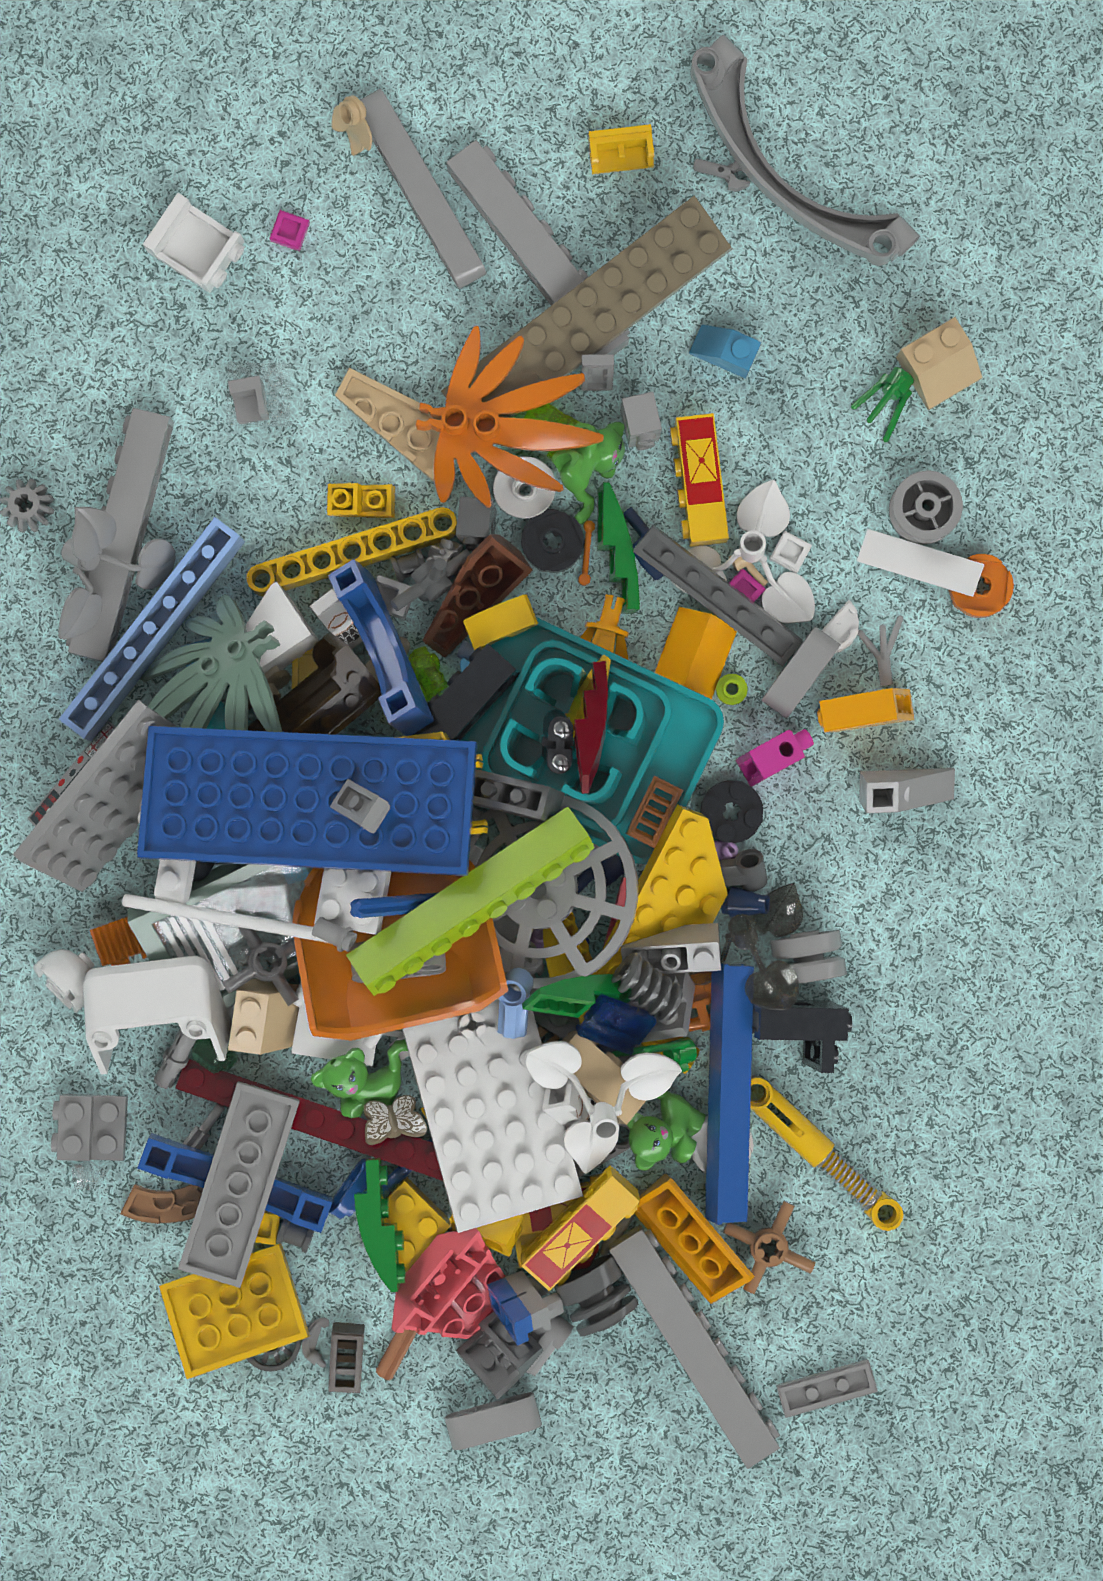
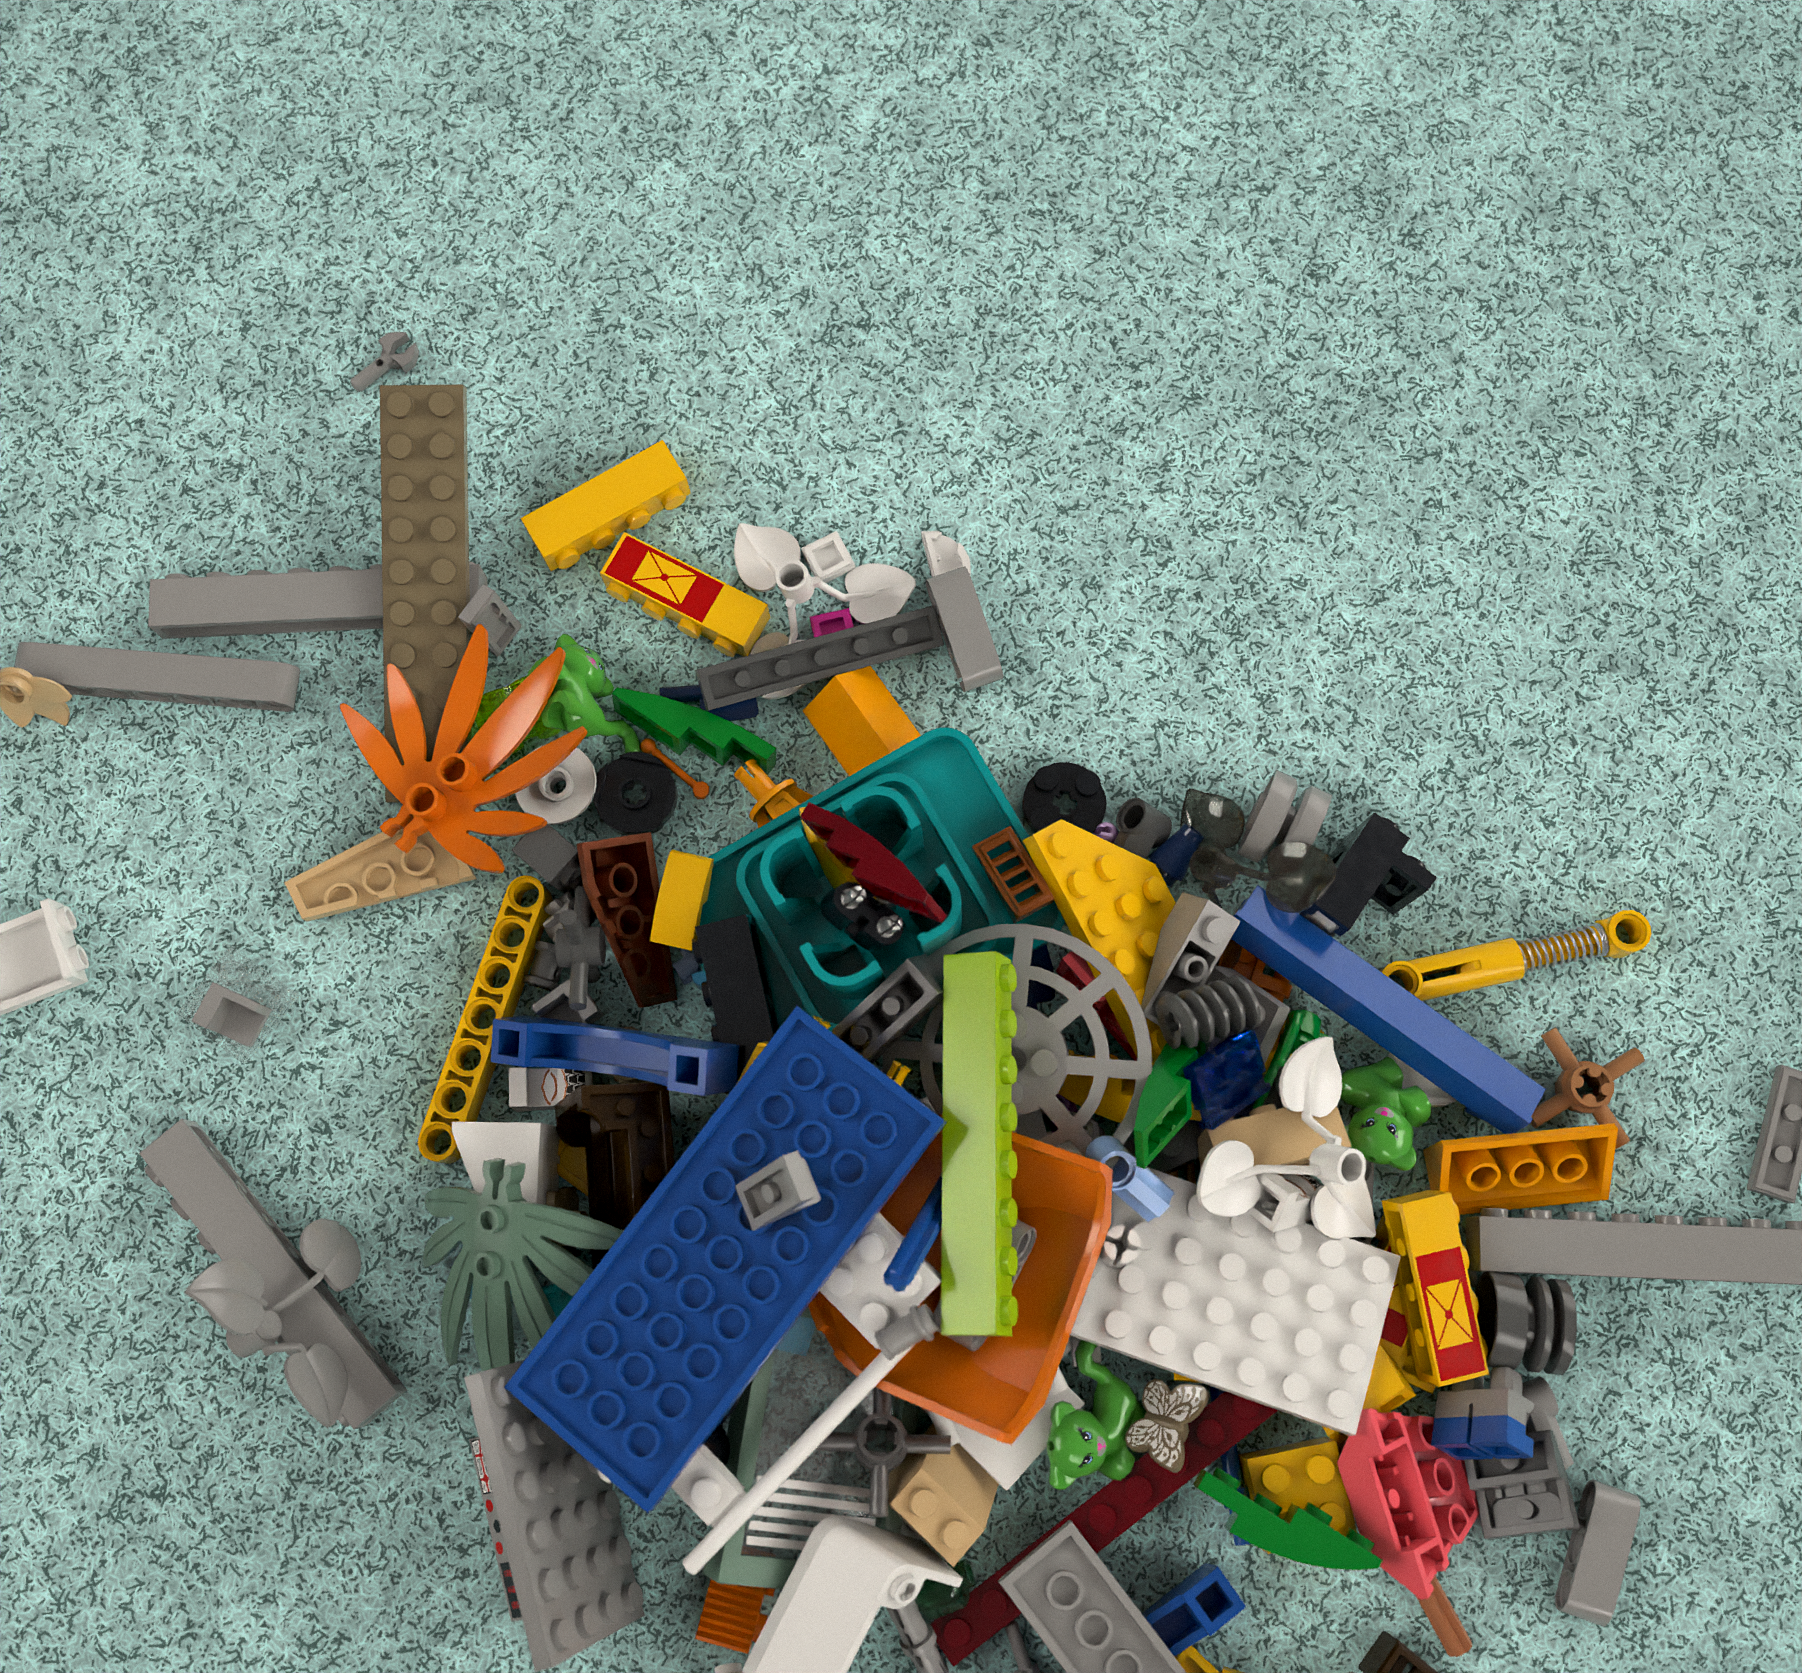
camera: 55 degrees left, 10 degrees down
(35, 495) = (171, 1359): light grey gear -> none
(152, 630) = (403, 1312): light blue brick -> none
(289, 230) = (90, 846): dark pink tile -> none
(295, 1235) = (1225, 1642): dark grey bush -> none
(343, 1201) = (1217, 1543): blue plate -> none
(361, 500) = (438, 972): yellow slope -> none
(427, 672) = (675, 1022): clear neon green plate -> none
(621, 149) = (279, 445): yellow hinge -> none
(641, 420) = (575, 609): light grey brick -> none
(725, 103) = (286, 297): light grey panel -> none
(725, 349) = (565, 471): dark azure slope -> none
(725, 387) = (607, 506): none -> yellow brick
(727, 698) = (935, 701): lime plate -> none
(739, 563) = (806, 609): tan hand -> none
(767, 760) = (1035, 717): dark pink torso -> none
(866, 710) = (1050, 591): light orange slope -> none
(883, 656) = (1009, 539): light grey plant -> none
(894, 386) = (734, 343): green plant -> none
(905, 789) = (1163, 607): light grey slope -> none
(912, 520) = (880, 390): light grey wheel -> none
(920, 562) = (933, 435): white sticker -> none
(941, 363) = (741, 281): tan slope -> none
(991, 600) = (1001, 372): orange plate -> none

